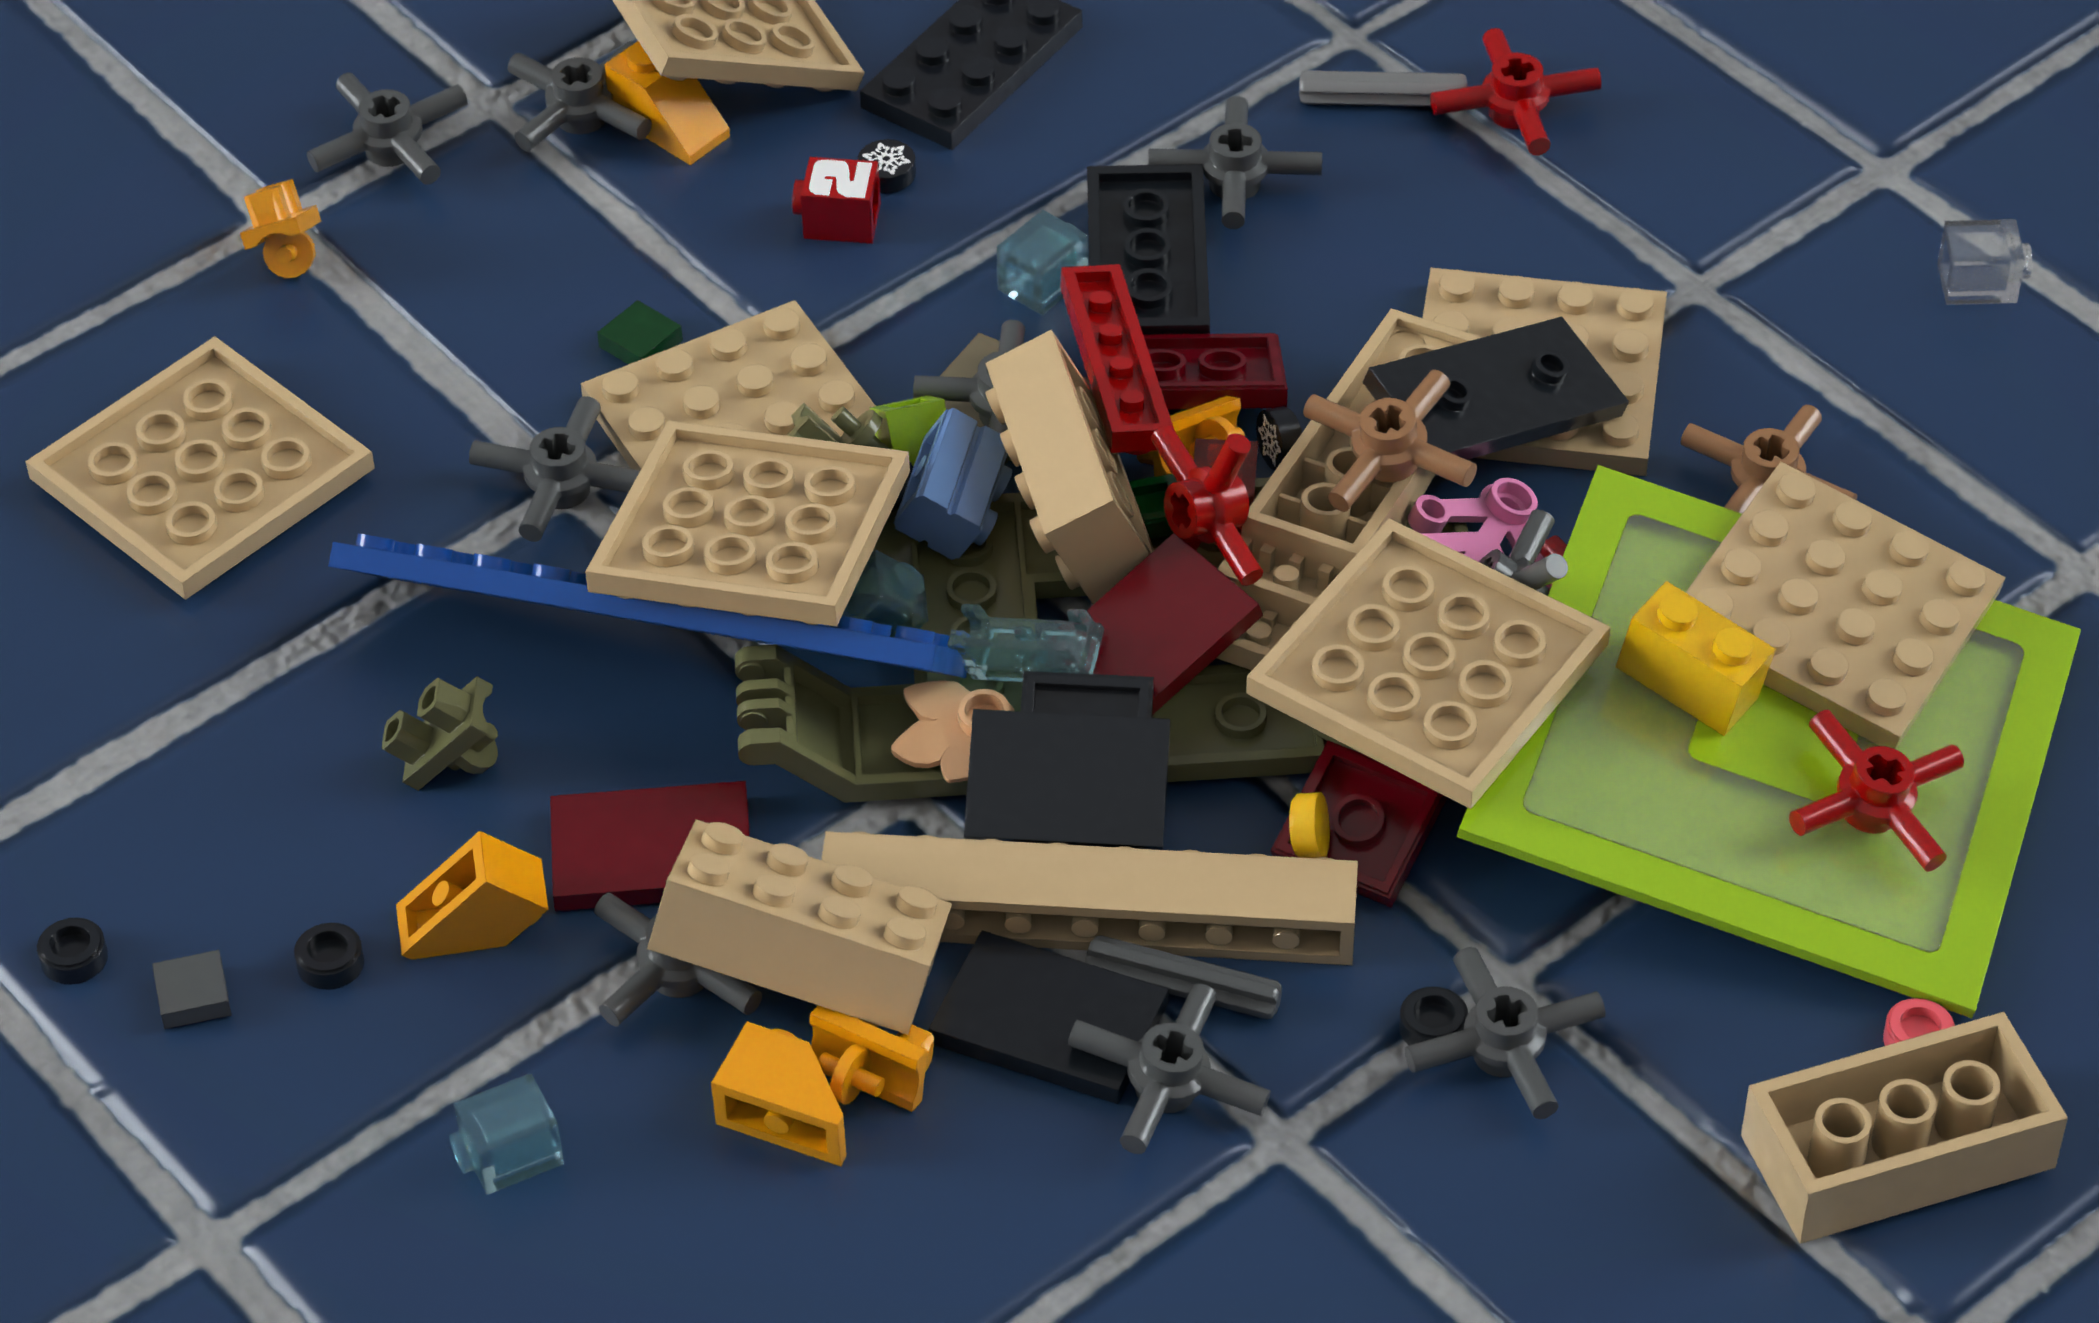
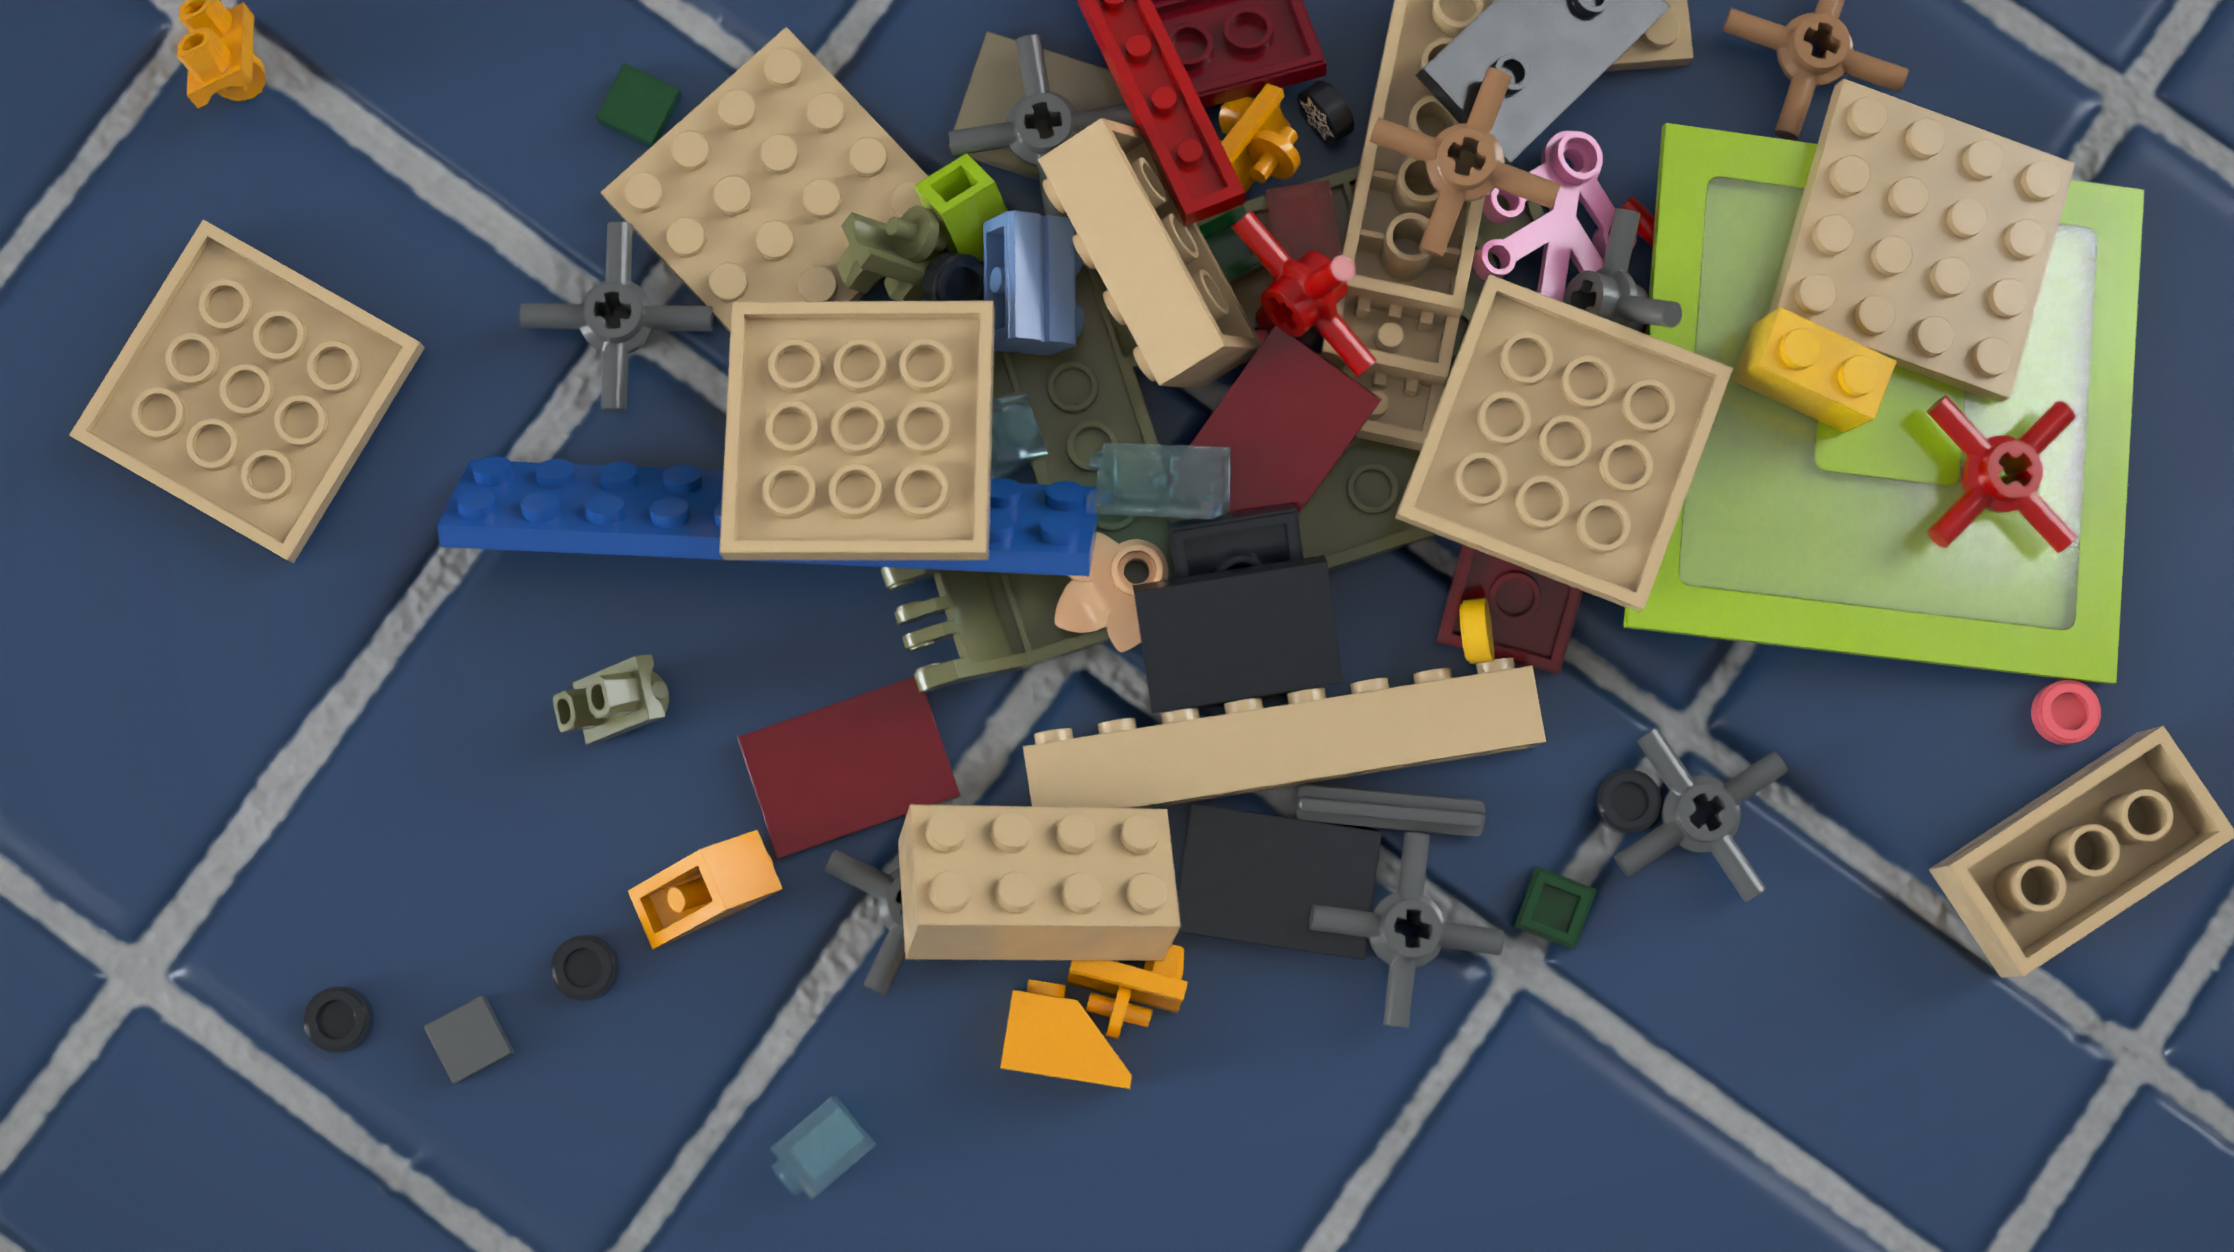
camera: 20 degrees left, 35 degrees up
(1332, 1094) = (1554, 908): none -> dark green tile

